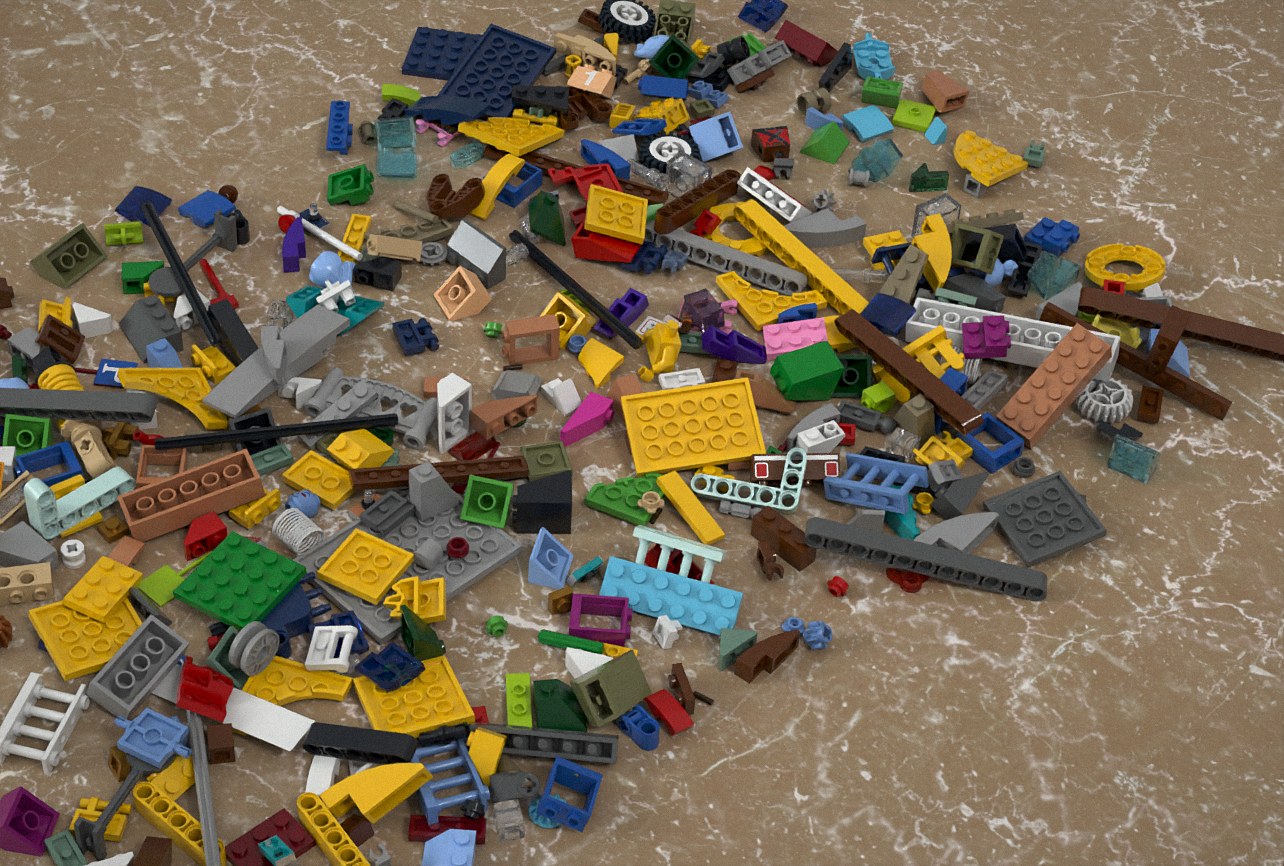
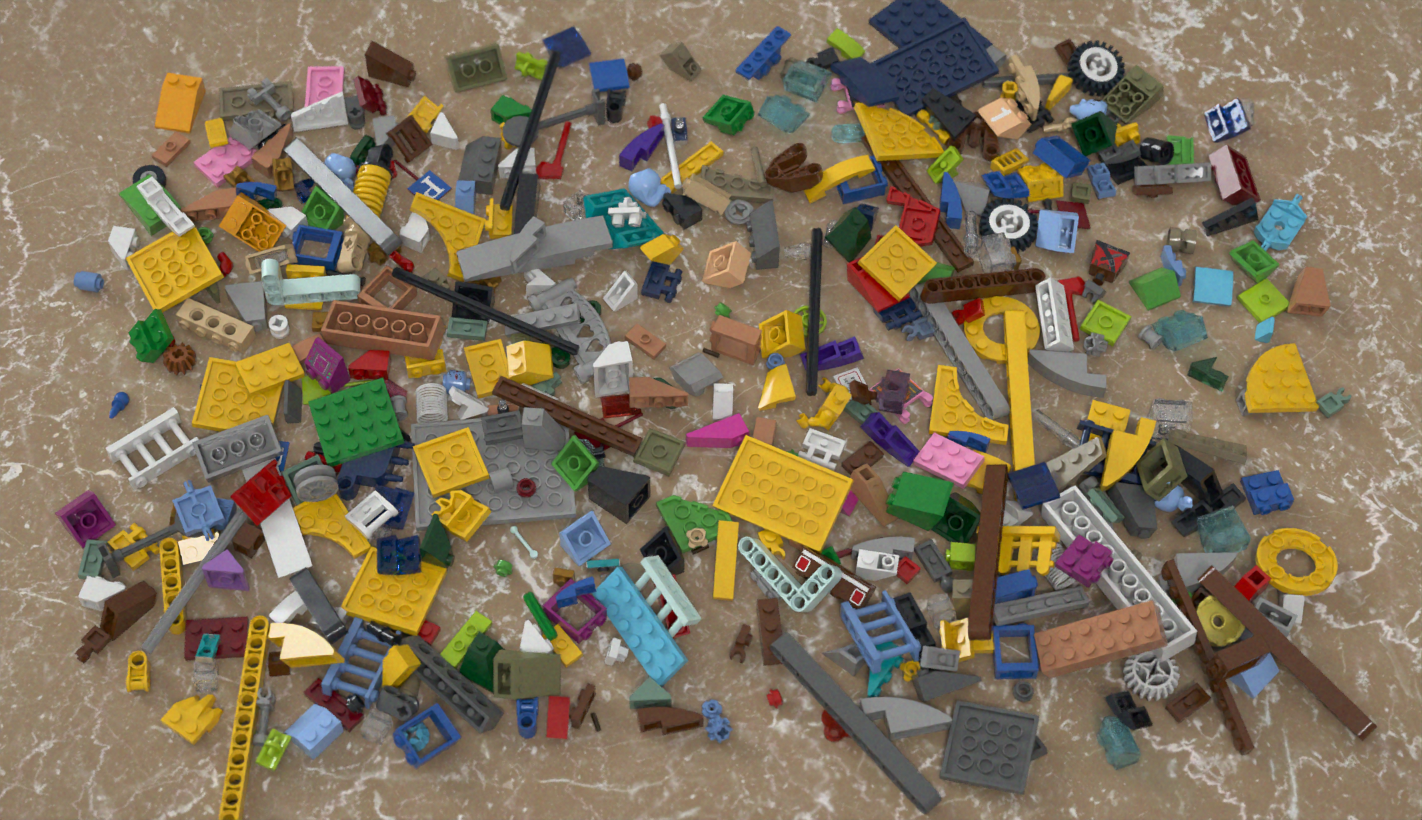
camera: 40 degrees right, 15 degrees up
(161, 554) = (326, 367): none -> magenta slope
(233, 778) = (225, 573): none -> medium lavender slope
(263, 167) = (680, 61): none -> dark tan slope
(334, 515) = (469, 405): none -> white slope
(388, 358) = (622, 292): none -> white slope
(396, 305) = (663, 249): none -> yellow slope
(511, 602) = (533, 553): none -> light aqua hinge
(576, 131) = (945, 163): none -> lime slope
(591, 599) = (569, 595): none -> blue slope
(622, 528) = (666, 548): none -> black slope
(809, 182) = (1106, 321): none -> lime plate

